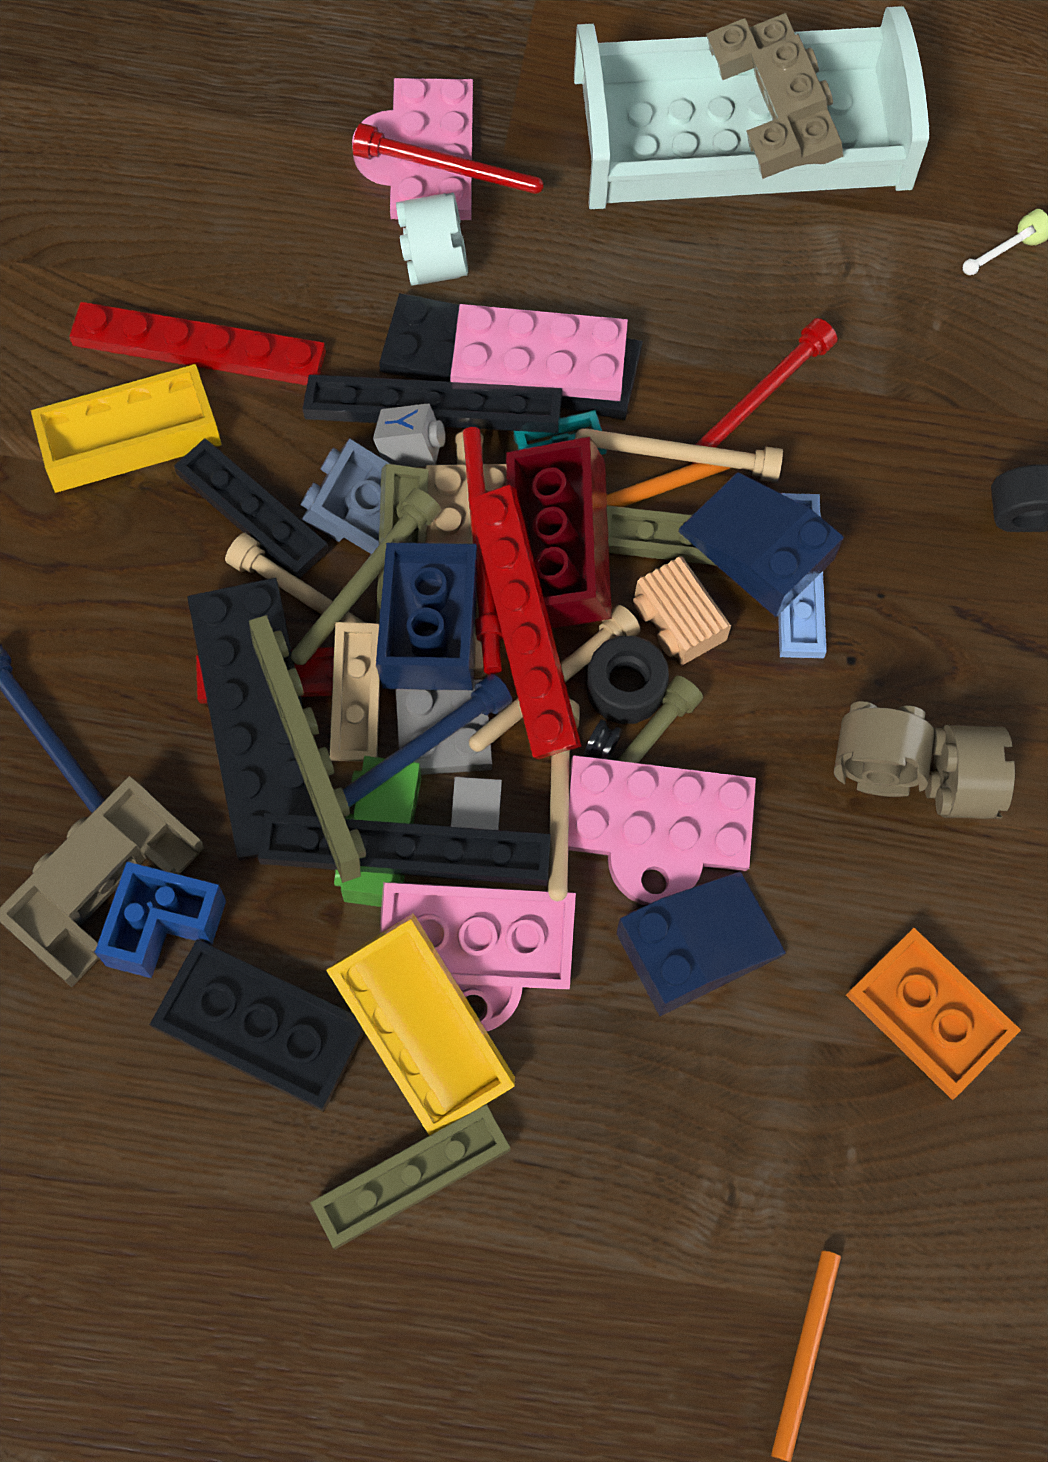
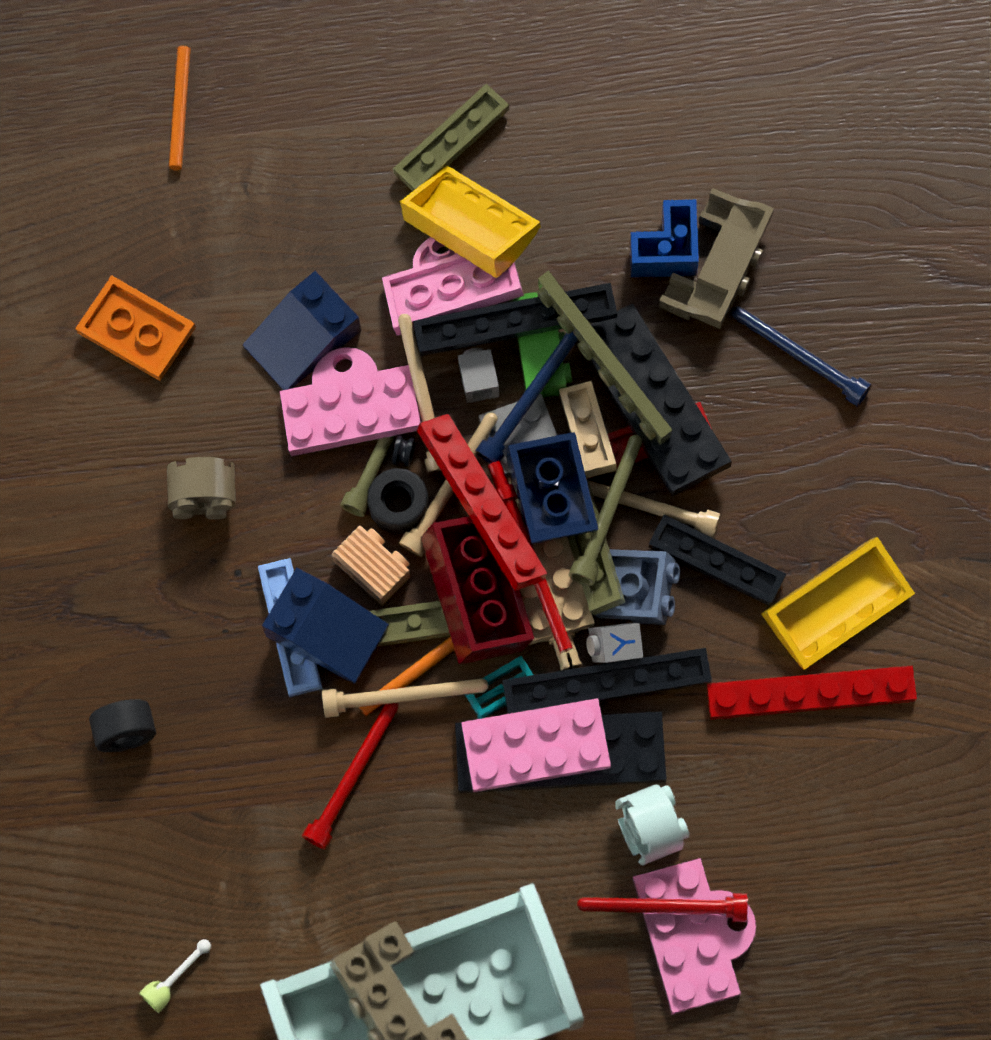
camera: 170 degrees right, 5 degrees up
(259, 1025) = (581, 200): black plate -> none
(971, 772) = (138, 488): dark tan brick -> none

